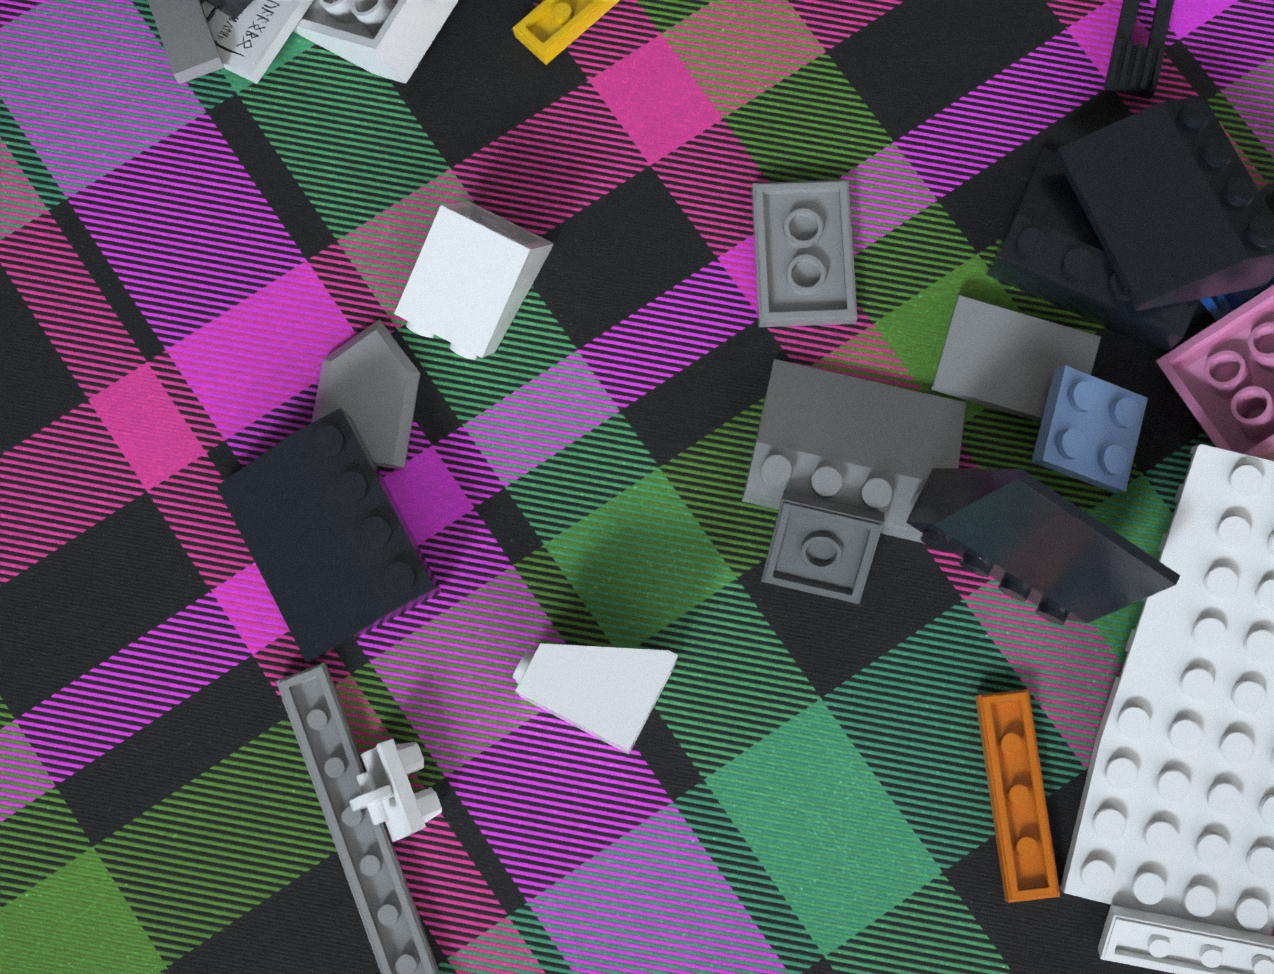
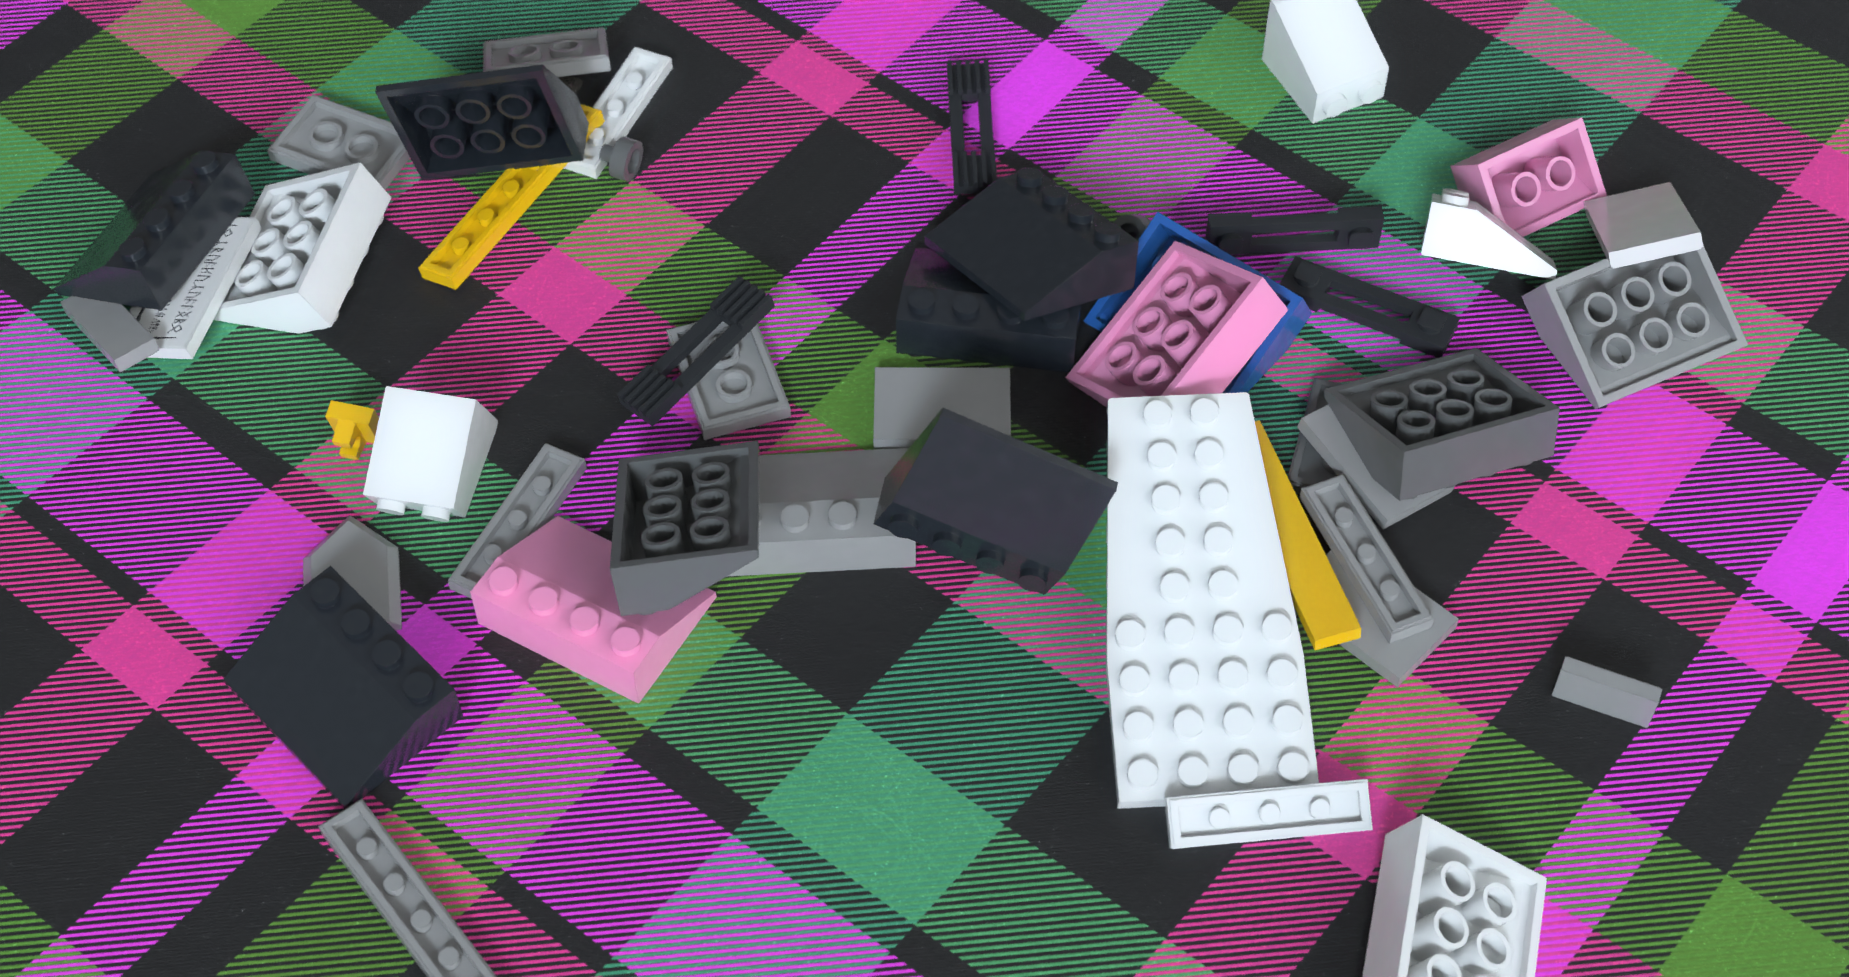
camera: 15 degrees left, 25 degrees down
(389, 792) = (452, 880): white hips -> none
(401, 219) = (352, 427): none -> yellow tile
(545, 379) = (524, 511): none -> light grey tile
(596, 687) = (629, 736): white slope -> none
(599, 501) = (562, 603): none -> bright pink slope
(713, 462) = (683, 523): none -> dark grey slope
(822, 546) = (808, 578): dark grey tile -> none
(835, 184) = (652, 395): none -> black container
(1017, 796) = (1052, 741): orange tile -> none
(1089, 429) = (1025, 417): light blue plate -> none

